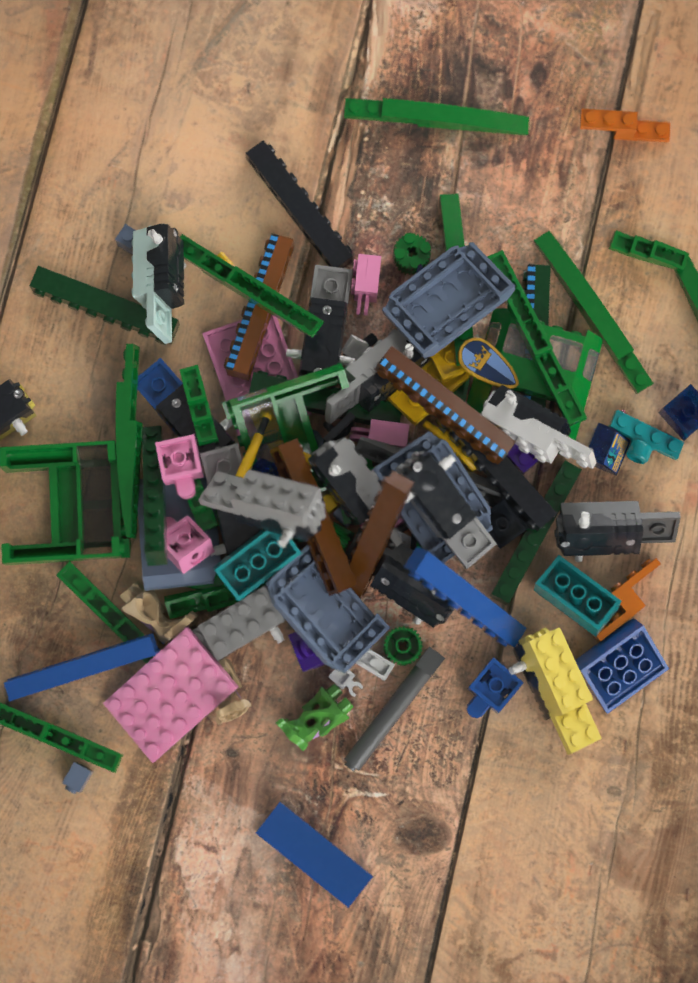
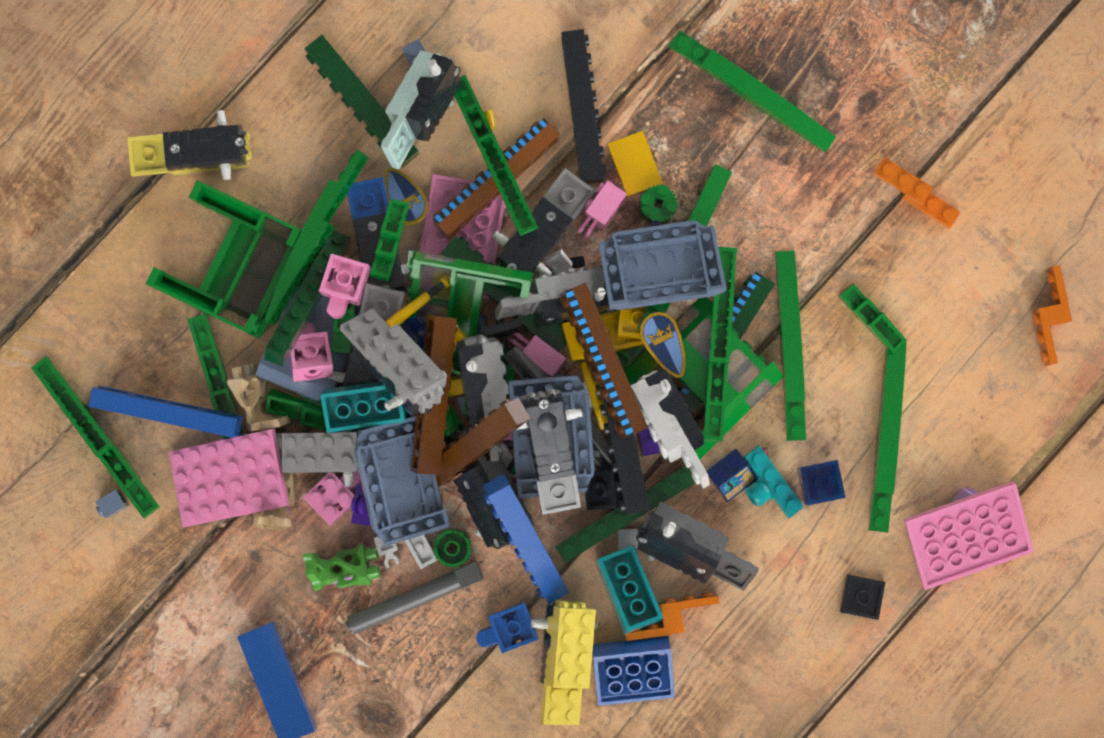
camera: 30 degrees right, 5 degrees up
(181, 358) = (402, 188): none -> shield
(271, 659) = (330, 496): none -> bright pink brick
(371, 230) = (634, 163): none -> yellow tile
(549, 553) = (627, 538): none -> white plate

